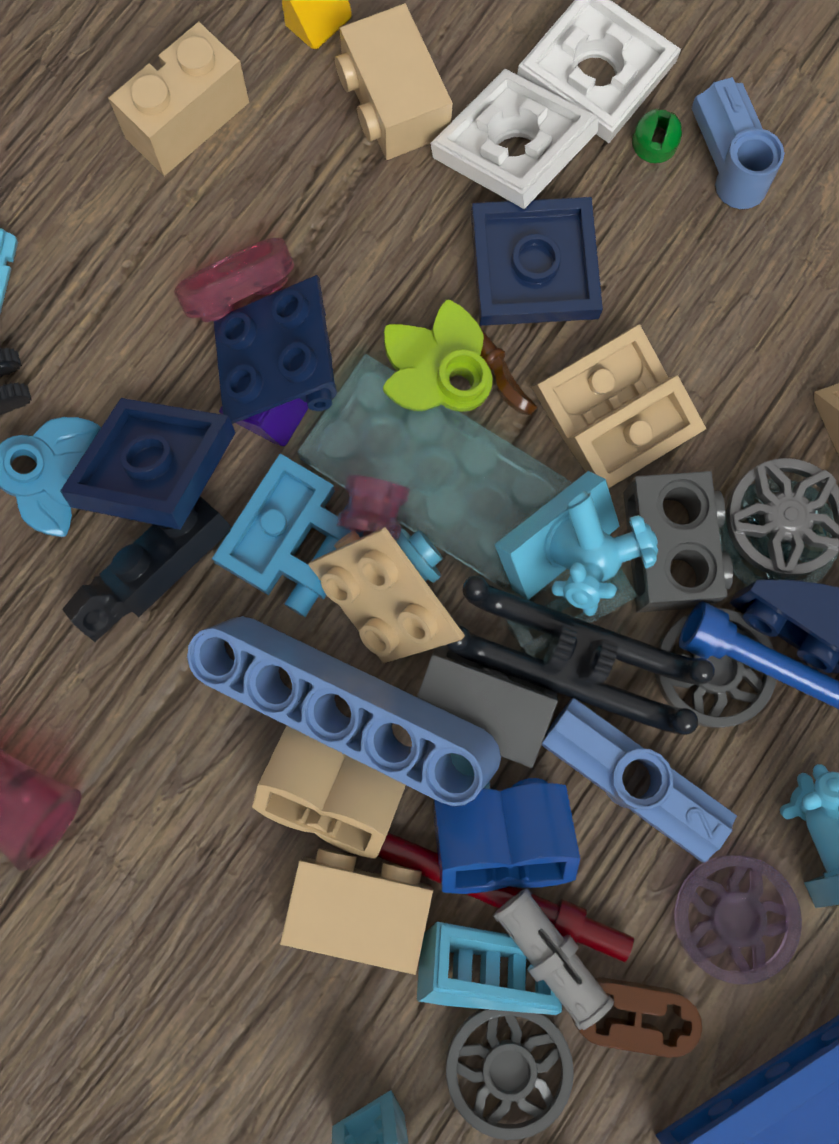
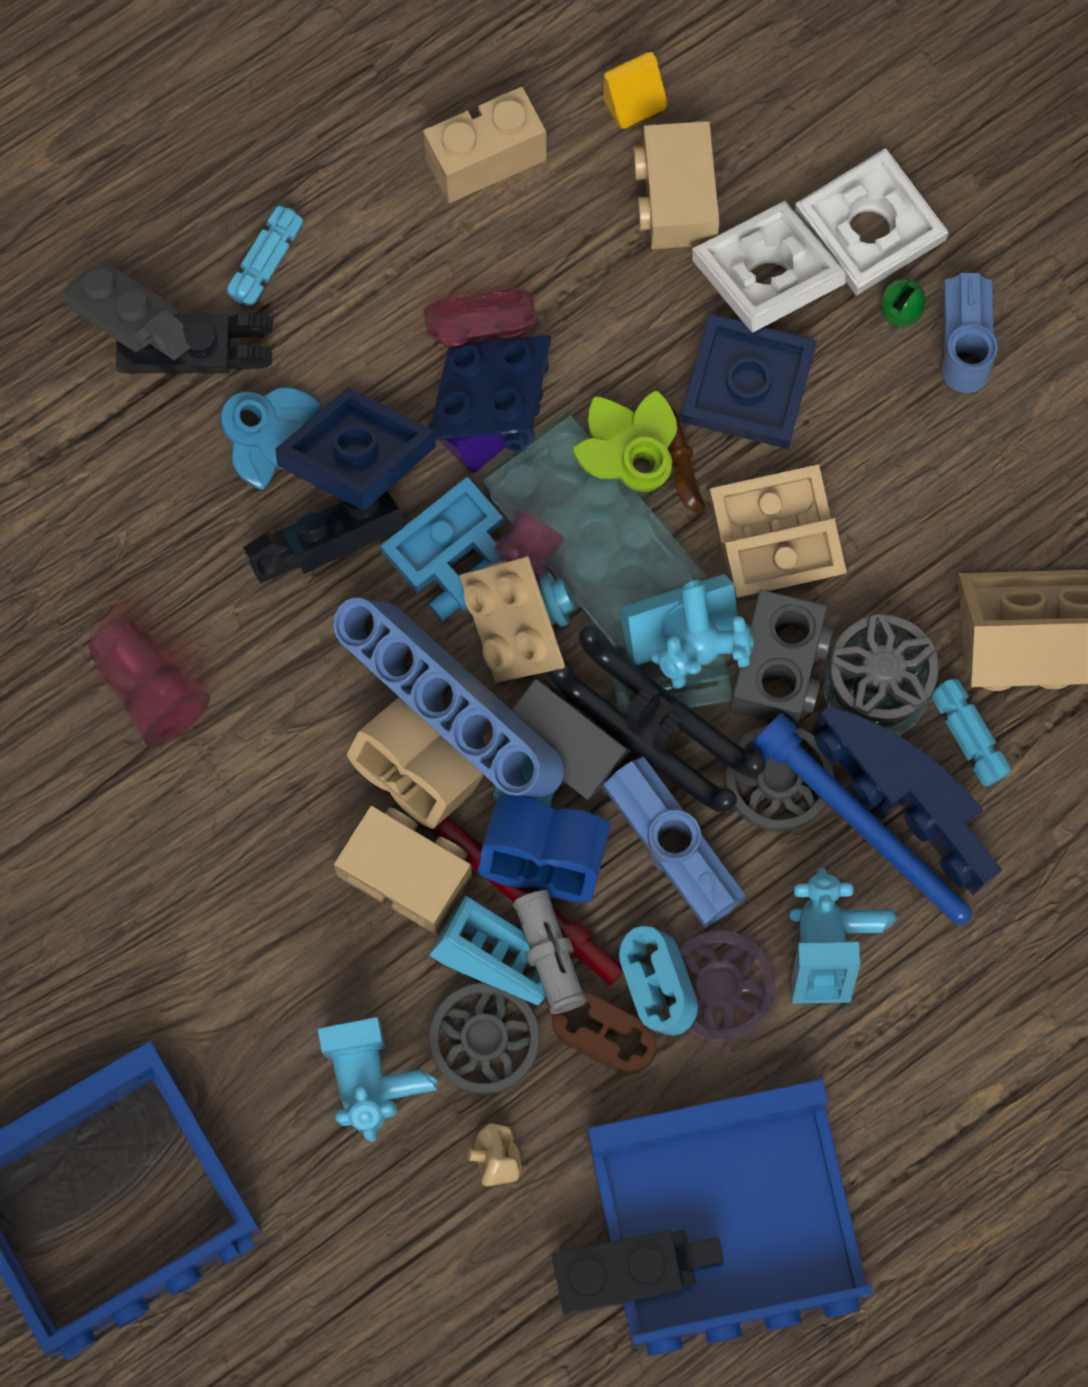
camera: 25 degrees right, 5 degrees down
(665, 952) = (649, 984): none -> medium azure beam

